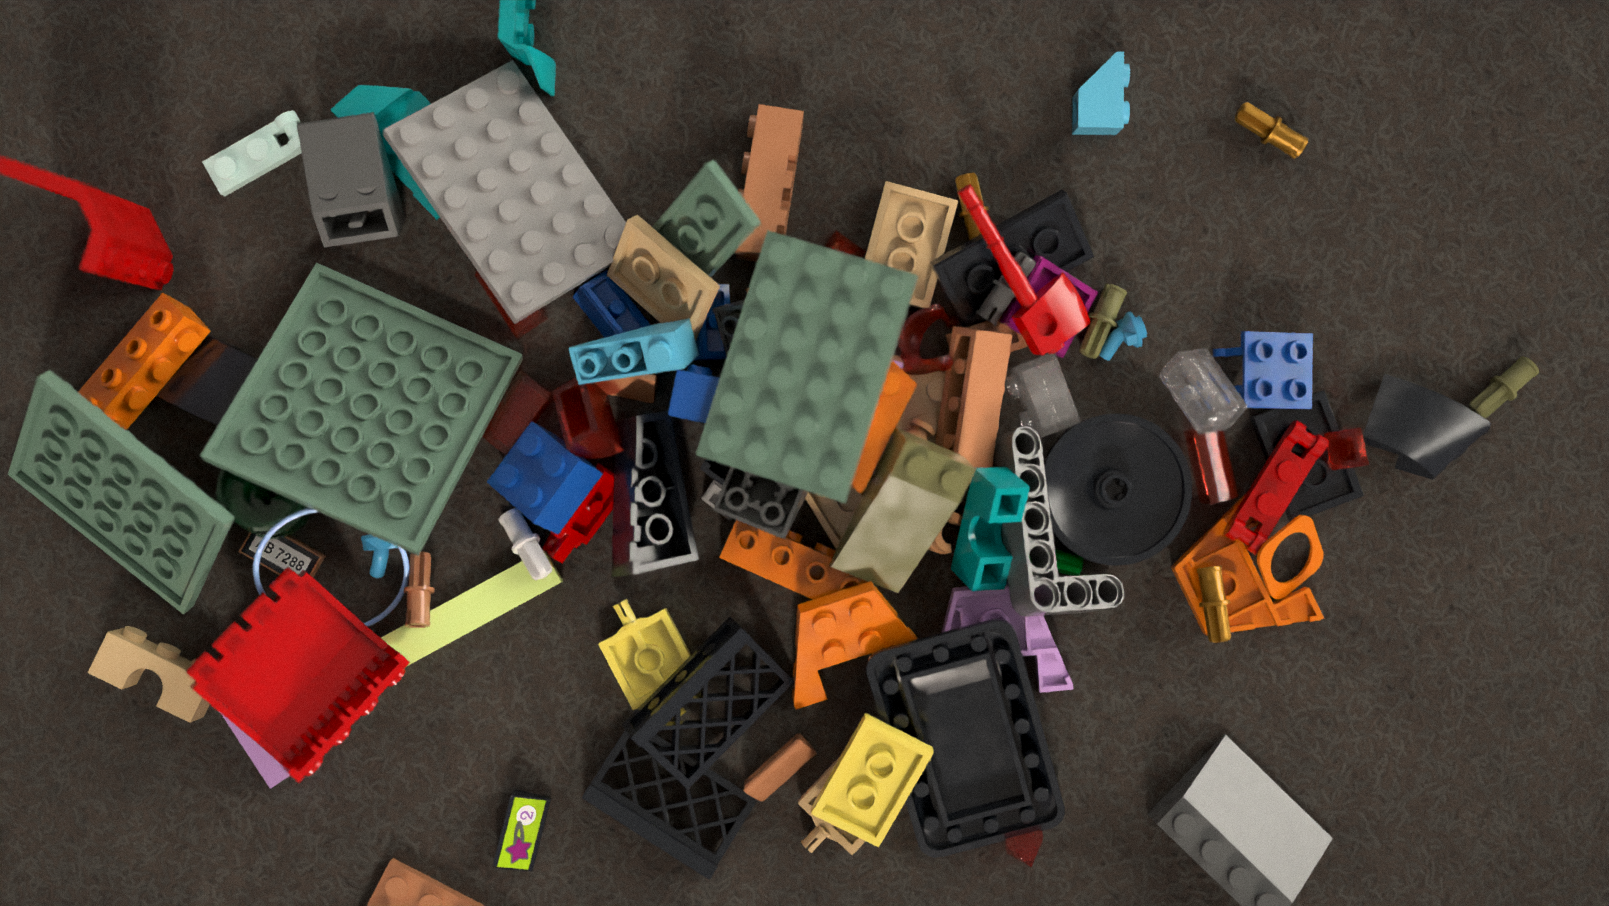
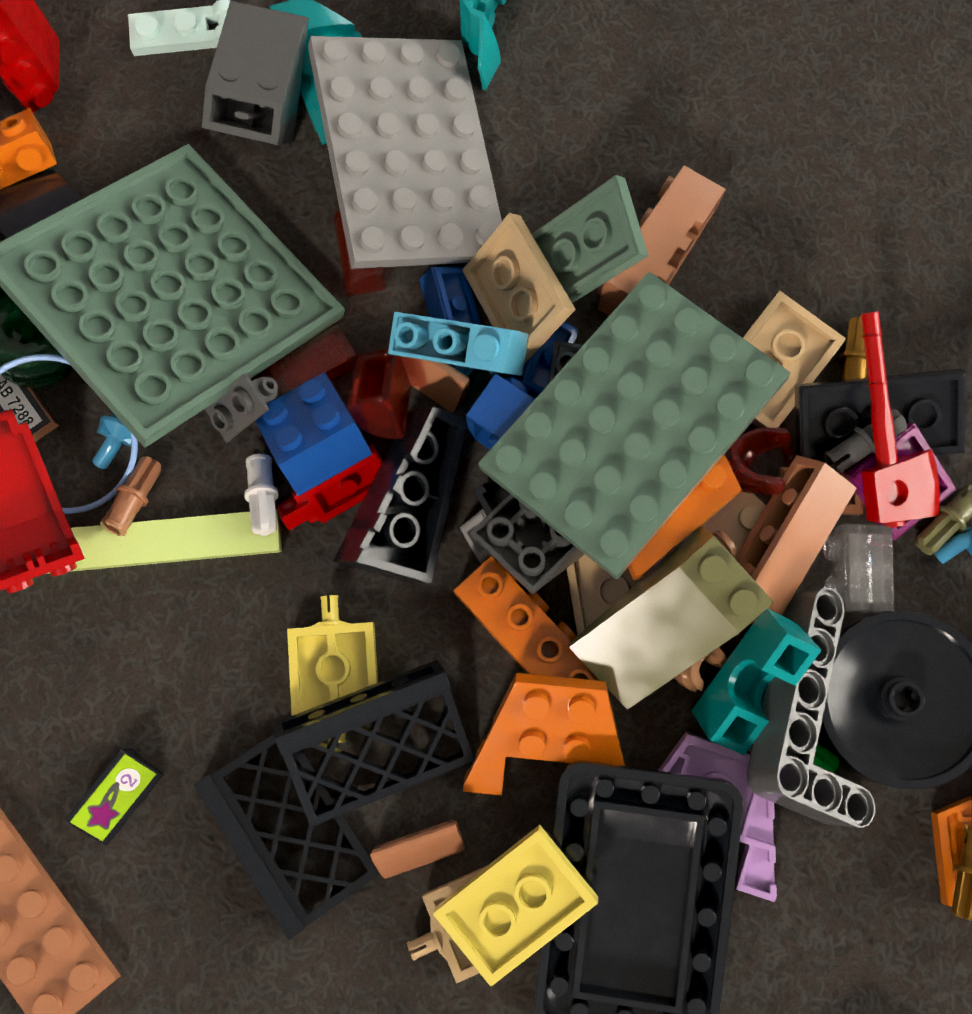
camera: 30 degrees right, 10 degrees down
(478, 479) = (241, 405): none -> dark grey hinge

